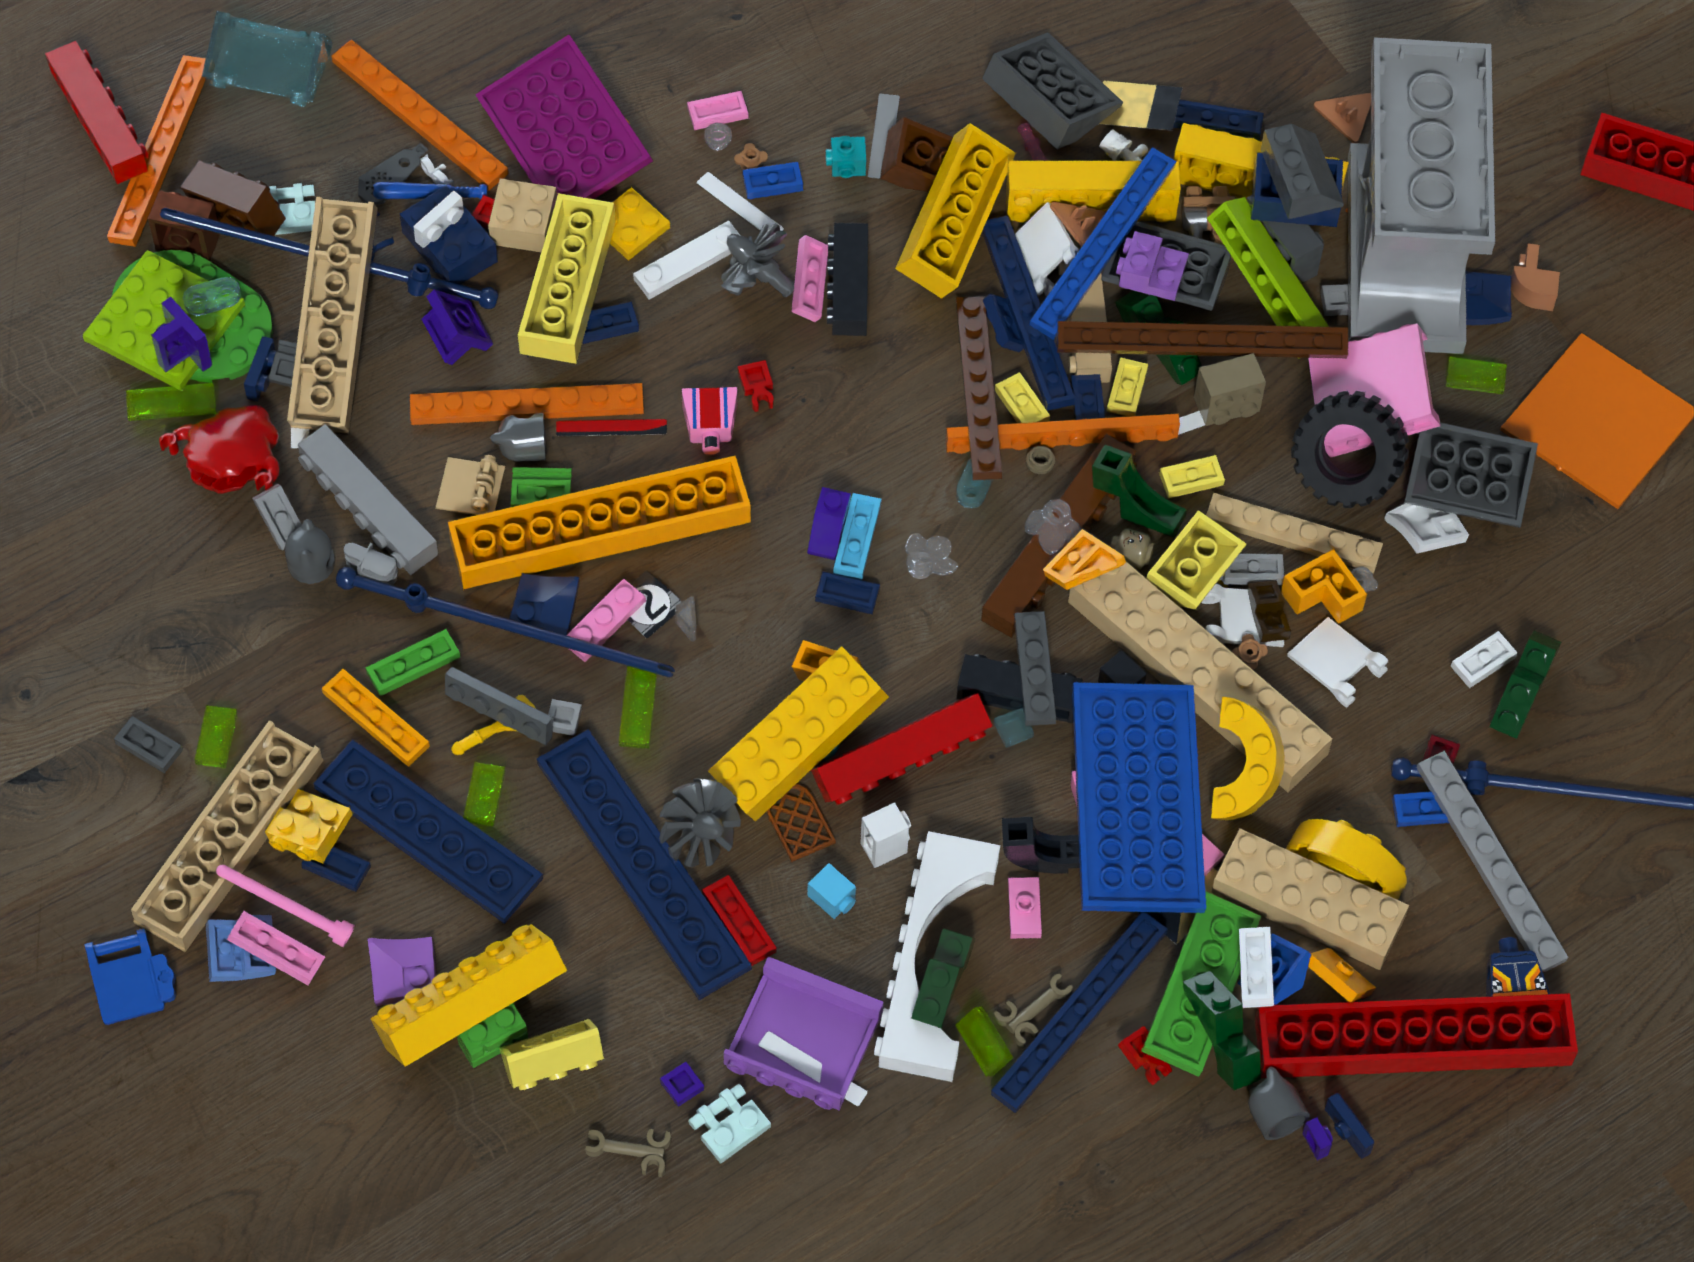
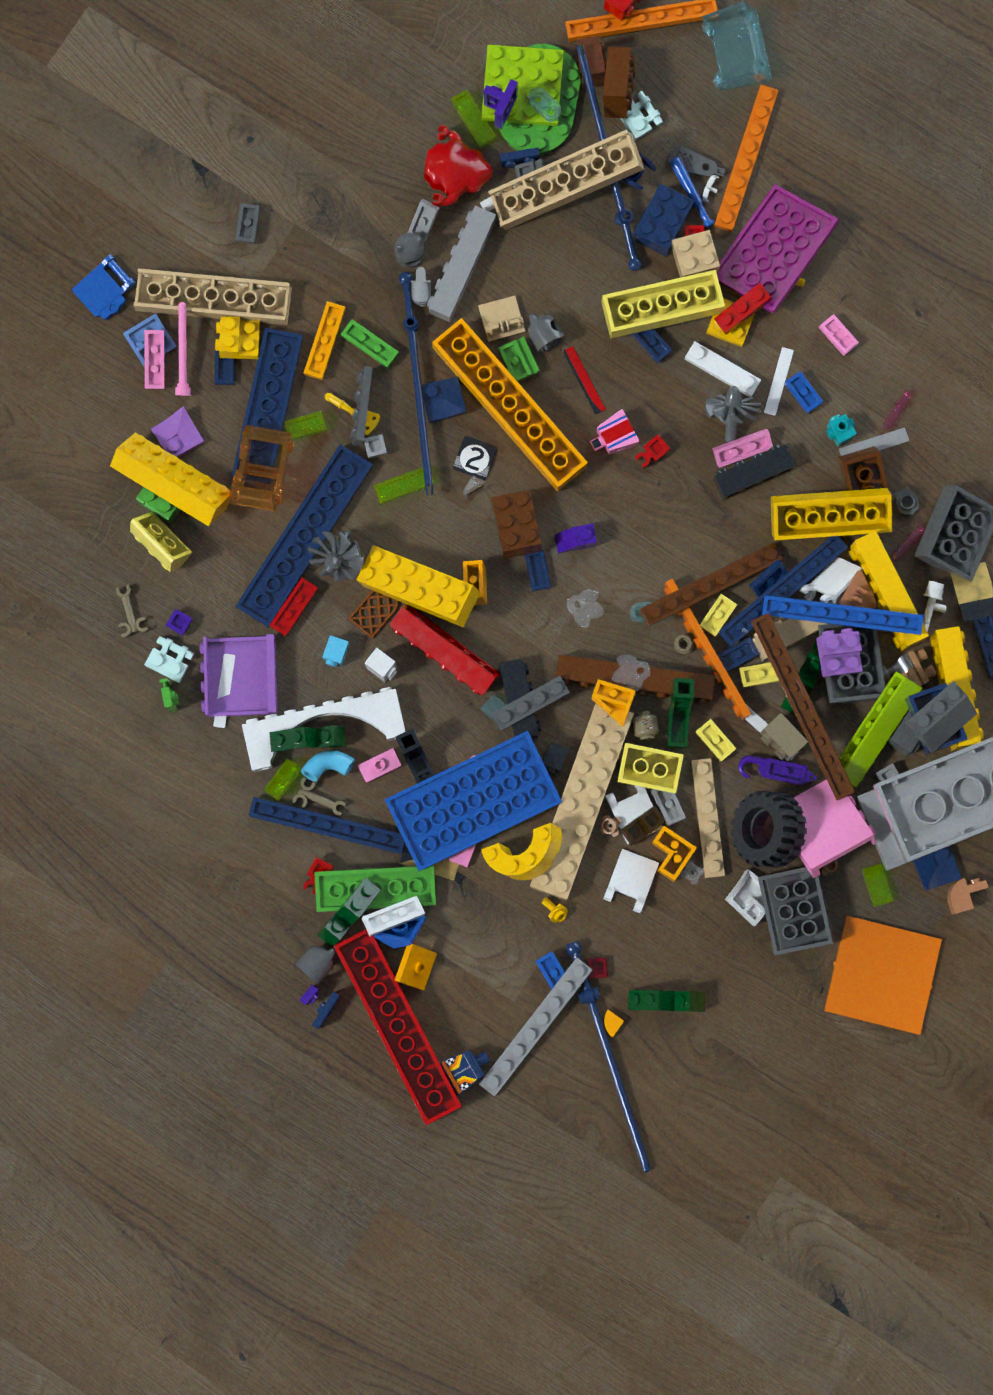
camera: 70 degrees right, 20 degrees up
(216, 736) = (272, 258): clear neon green plate -> none
(438, 219) = (668, 211): white plate -> none
(454, 326) = (604, 255): dark purple bracket -> none
(523, 403) = (574, 323): orange plate -> none
(552, 895) = (255, 497): none -> clear orange window
(608, 616) = (452, 439): bright pink plate -> none
(626, 191) = (743, 308): none -> red plate
(718, 136) = (820, 344): clear plate -> none
(749, 150) = (809, 375): medium nougat plate -> none
(772, 583) = (516, 524): none -> reddish brown brick
(787, 1136) = (170, 698): none -> bright green plate
(849, 83) = (899, 405): none -> clear pink piece
(857, 536) = (576, 559): medium azure plate -> none
(985, 123) = (906, 501): none -> dark grey animal
(986, 968) = (326, 761): none -> medium azure cylinder
(1268, 421) = (777, 770): none -> dark purple plate
(1309, 899) = (459, 929): tan brick -> none
(1341, 768) = (558, 913): none -> yellow plate
(1350, 854) = (492, 941): yellow brick -> none
(1484, 659) = (672, 969): white plate -> none
(1526, 766) = (612, 1023): none -> light orange tile

